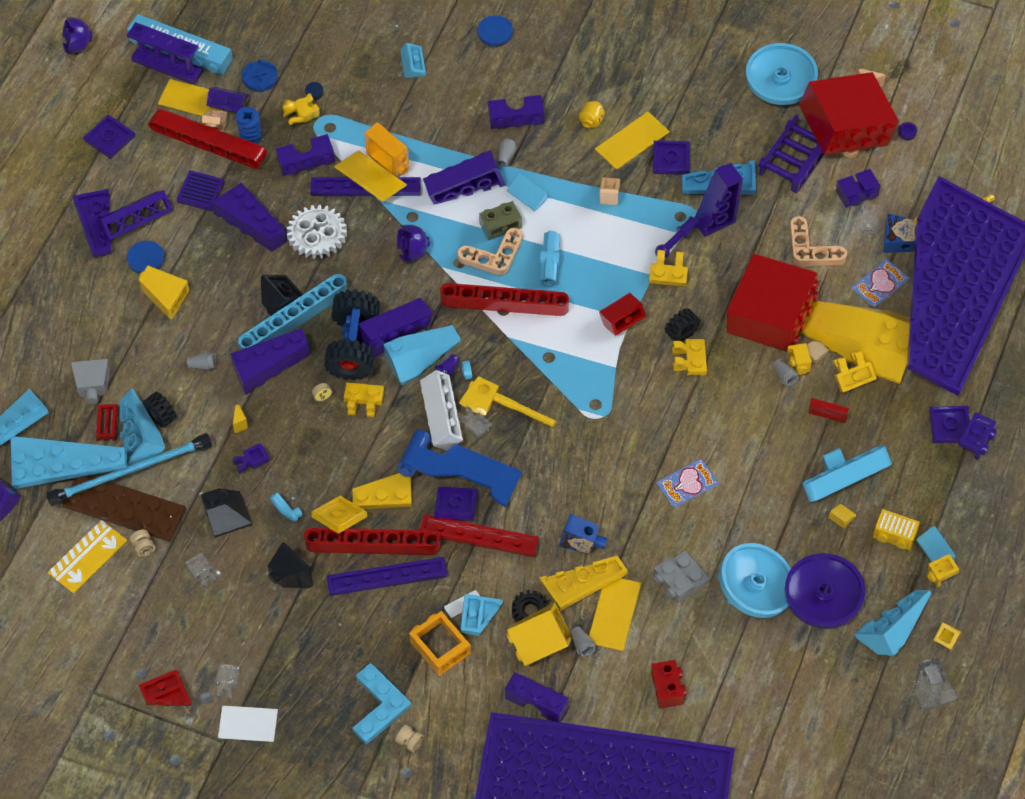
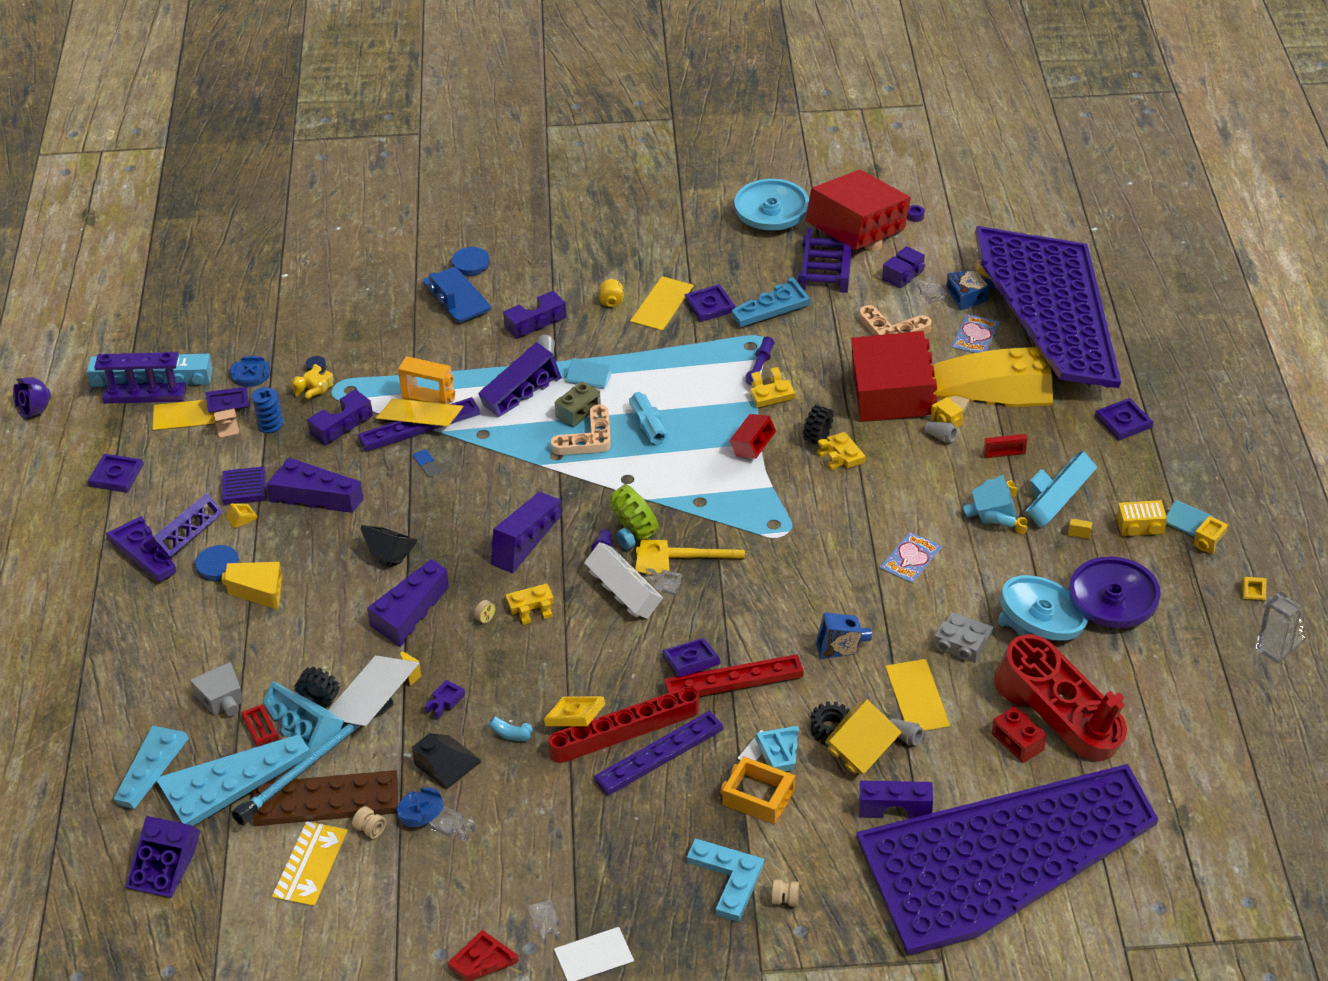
camera: 25 degrees left, 15 degrees down
(185, 218) = (240, 514): none -> yellow slope
(185, 546) = (420, 807): none -> blue tile
(199, 428) = (372, 689): none -> white sticker
(202, 361) = (336, 631): light grey cone -> none
(207, 138) = (226, 438): red beam -> none
(289, 569) = (554, 780): black slope -> none
(299, 308) = (415, 549): medium azure beam -> none
(316, 231) = (392, 476): white gear -> none
(347, 356) = (497, 564): black plate -> none
(354, 227) = (427, 462): none -> sticker
(384, 493) = (610, 676): yellow wing -> none
(412, 61) = (402, 310): medium azure slope -> none
(412, 242) = (498, 450): dark purple cylinder -> none
(418, 351) = (561, 544): medium azure wedge -> none
(459, 462) = (671, 618): blue door -> none
(463, 63) = (456, 294): none -> blue bracket
(480, 351) = (633, 512): none -> lime gear
(512, 304) = (624, 466): red beam -> none
(576, 584) = (868, 677): yellow wing -> none
(609, 191) = (671, 345): light nougat slope -> none
(720, 200) = (789, 307): dark purple wedge -> none
(727, 708) = (1036, 674): none -> red beam
(782, 464) = (995, 504): none -> medium azure torso
(855, 376) = (1010, 410): yellow plate -> none
(894, 627) = (1201, 599): medium azure wedge -> none
(978, 434) = (1159, 414): dark purple bracket -> none

